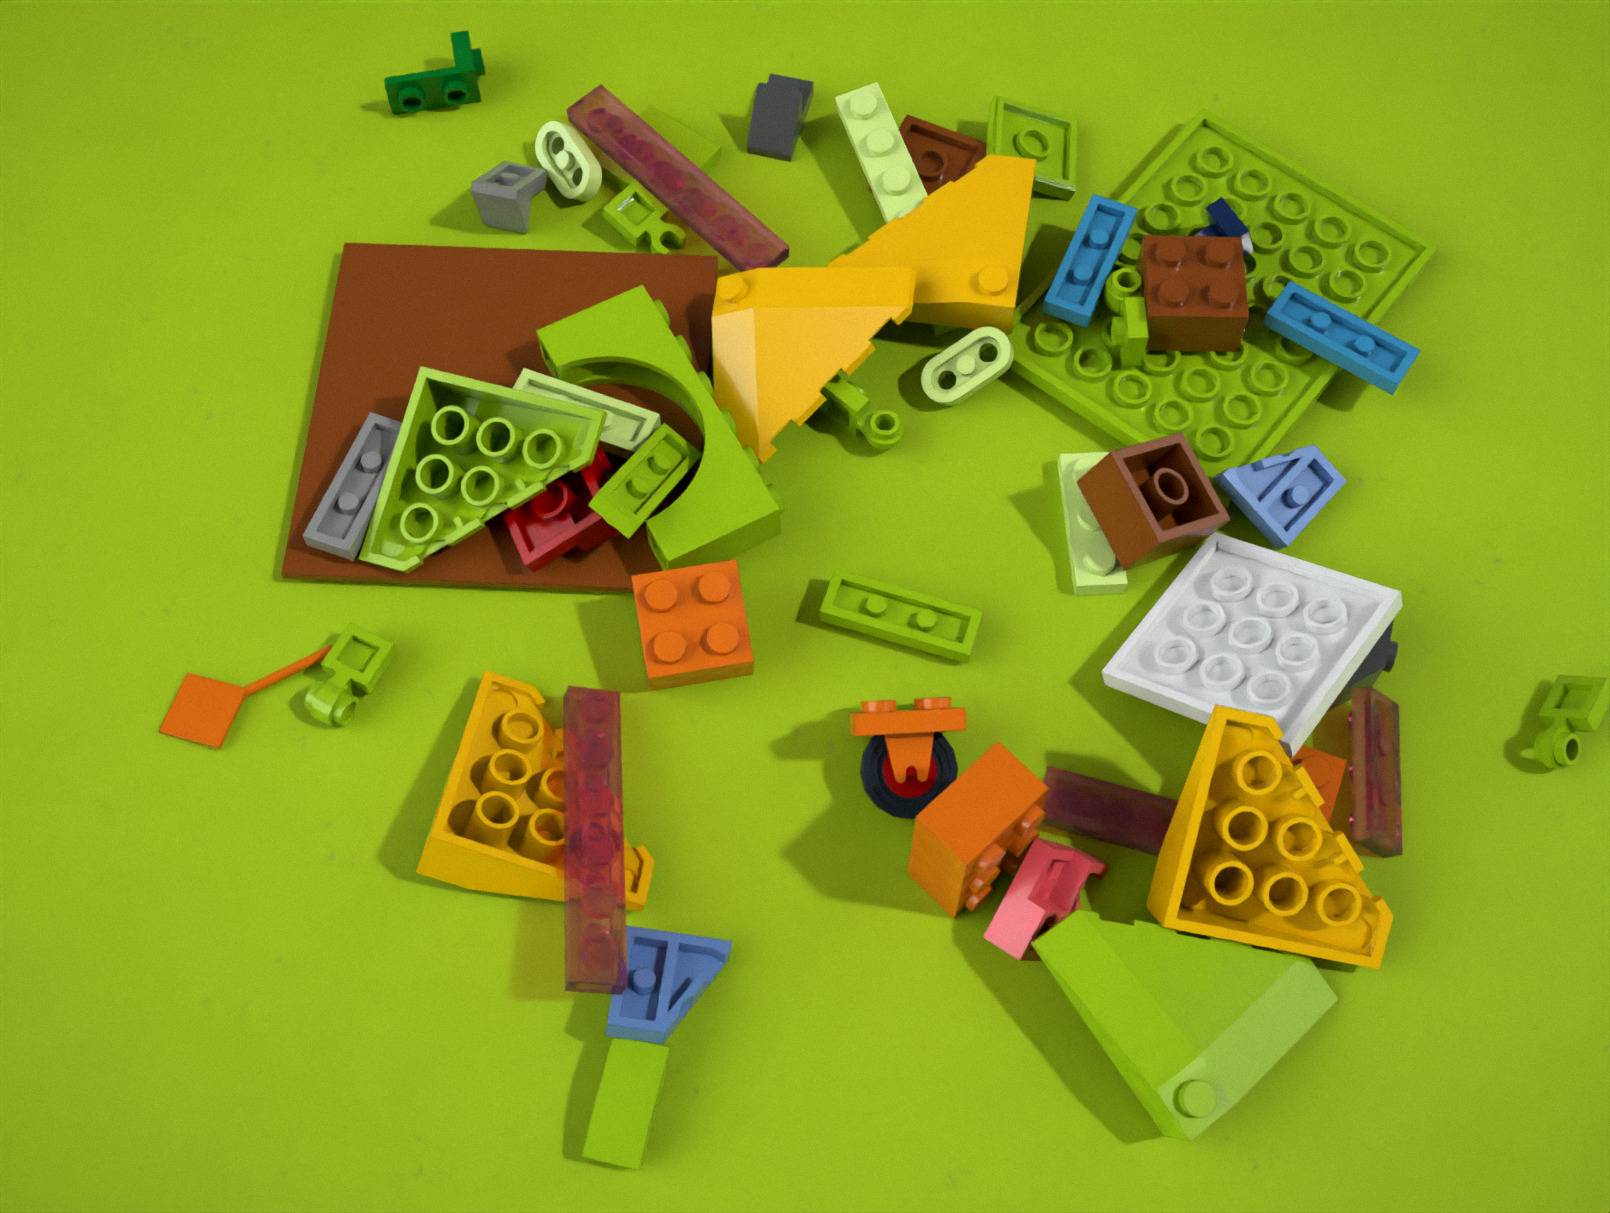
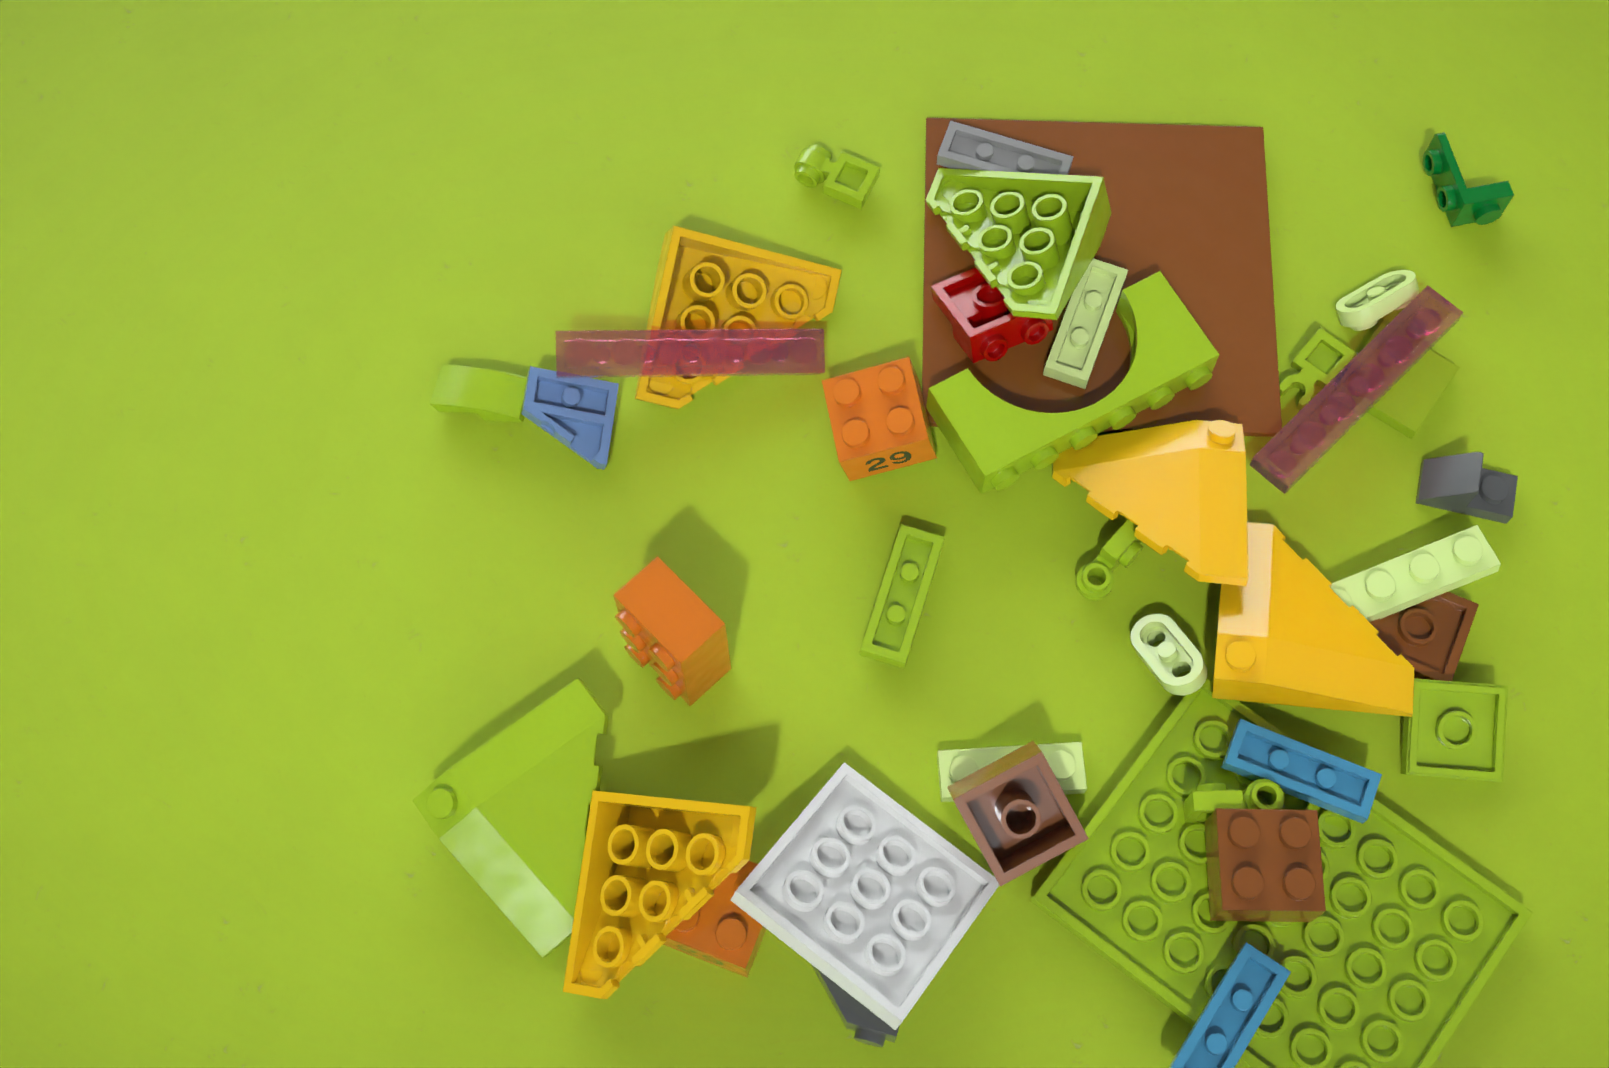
camera: 90 degrees right, 5 degrees up
(208, 707) = (814, 86): orange piece -> none
(506, 194) = (1335, 247): light grey slope -> none
(645, 480) = (1007, 365): lime plate -> none
(908, 755) = (768, 591): plate -> none
(1041, 896) = (635, 703): coral slope -> none
(1106, 811) = (717, 754): plate -> none
(1226, 223) = (1349, 911): dark blue tile -> none
(1282, 491) = (1048, 952): medium blue wing -> none
(1375, 773) = (749, 1011): plate -> none

